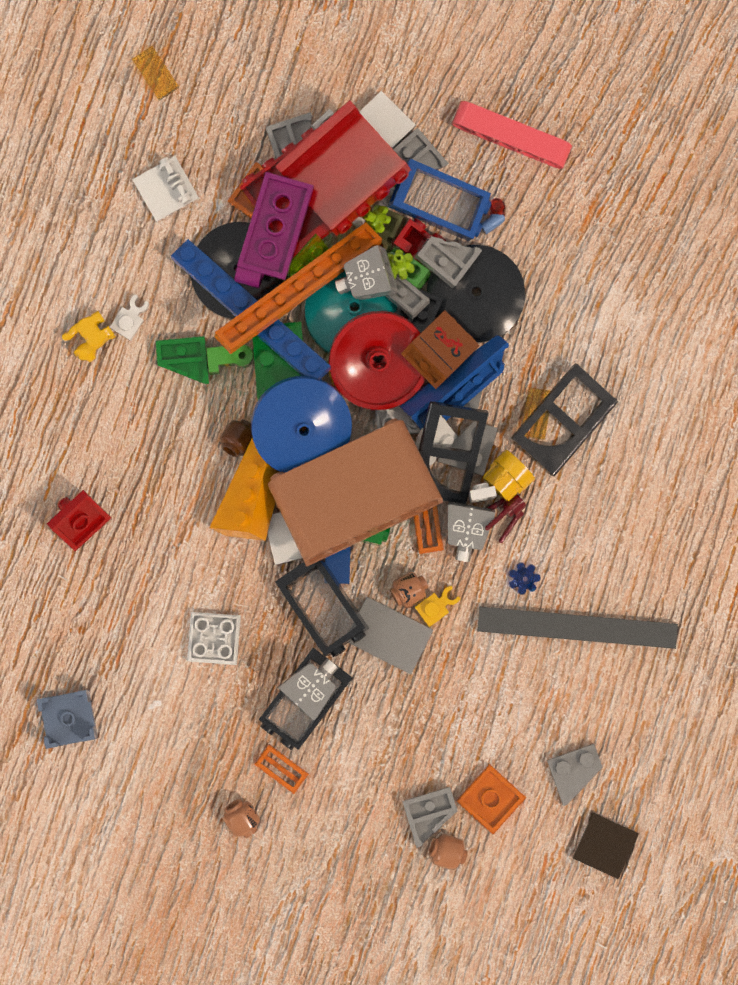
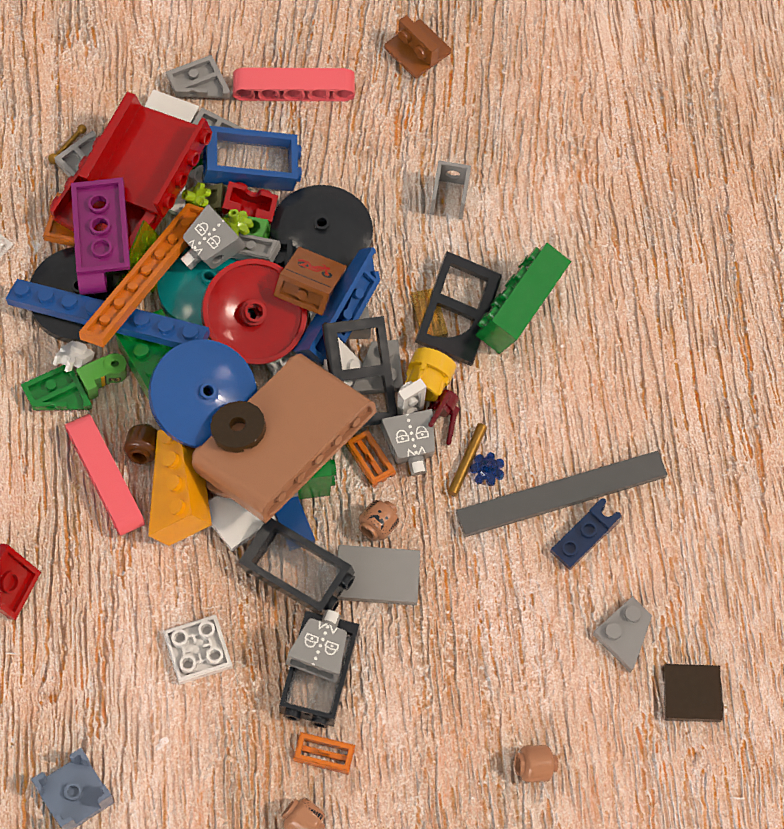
camera: 30 degrees left, 20 degrees down
(195, 452) = (104, 474): none -> coral beam
(205, 331) = (73, 354): none -> white plate
(302, 103) = (81, 129): none -> pearl gold hinge
(307, 462) = (236, 413): none -> dark brown tile
(427, 94) = (198, 80): none -> light grey wing
(429, 813) = (498, 733): light grey wing -> none
(434, 608) = (411, 530): yellow plate -> none
(447, 259) = (280, 203): light grey wing -> none
(491, 799) = (555, 694): orange tile -> none
(497, 215) = (310, 156): arm -> none
(510, 563) = (467, 459): none -> pearl gold bar
(578, 673) = (585, 535): none -> dark blue plate
(618, 286) = (442, 175): none -> light grey piece
(622, 438) = (522, 297): none -> green brick
(643, 139) = (416, 47): none -> dark orange bracket

